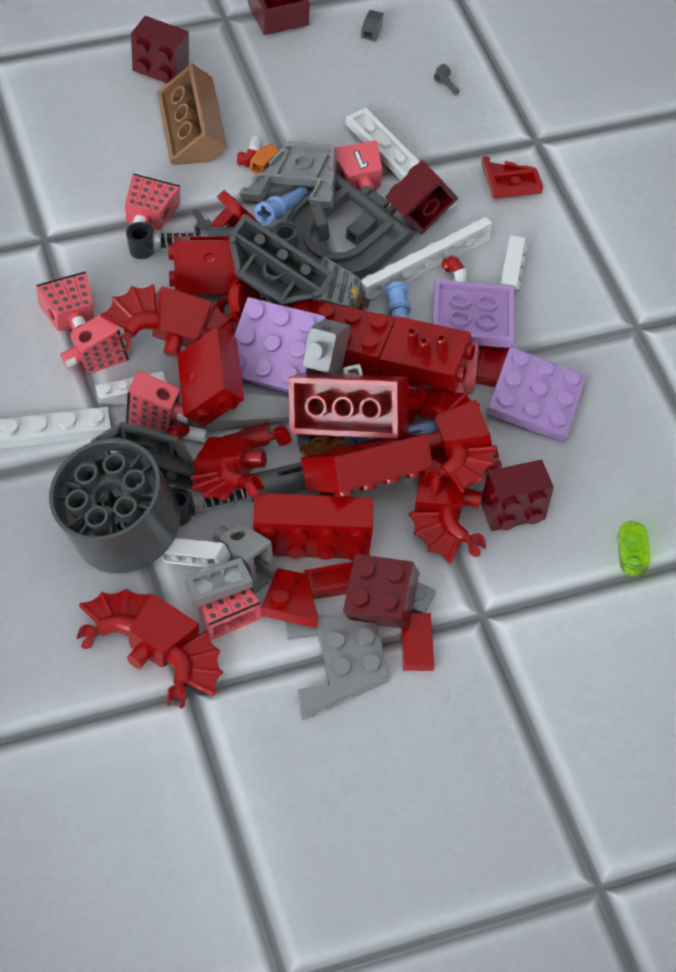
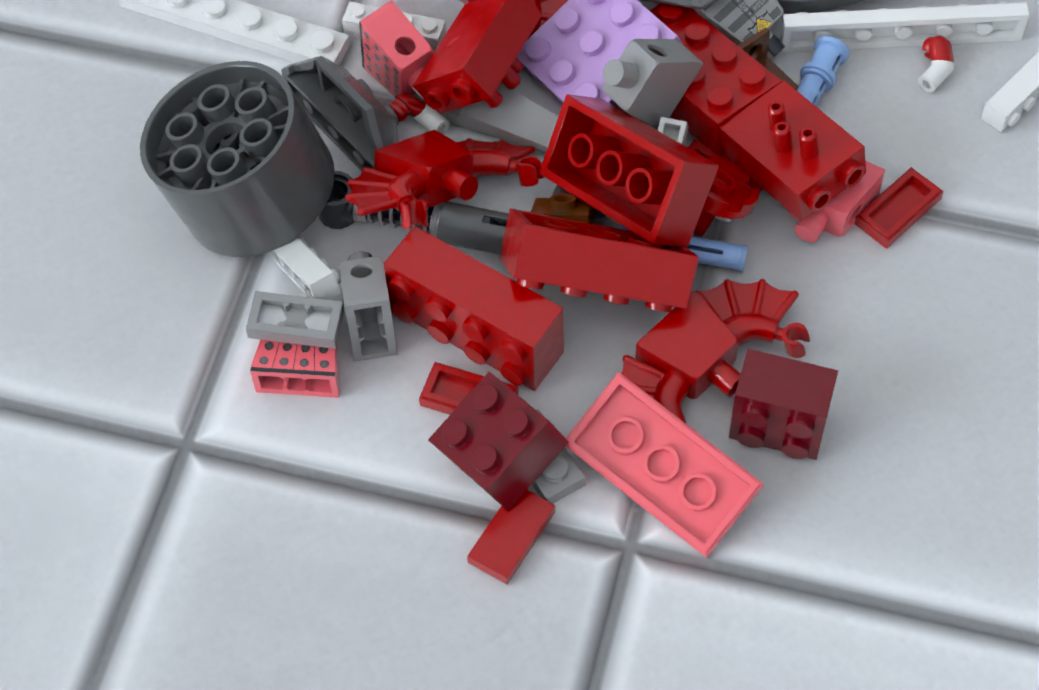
camera: 40 degrees right, 5 degrees up
(156, 634) = (192, 352): red torso -> none
(290, 599) = (384, 389): red wing -> none
(350, 657) = (409, 509): light grey wing -> none
(460, 434) = (759, 285): red torso -> none
(475, 560) = (663, 464): none -> coral tile
(476, 308) = (918, 128): lavender plate -> none
(536, 394) = (927, 280): lavender plate -> none
(633, 551) = (908, 568): clear neon green plate -> none

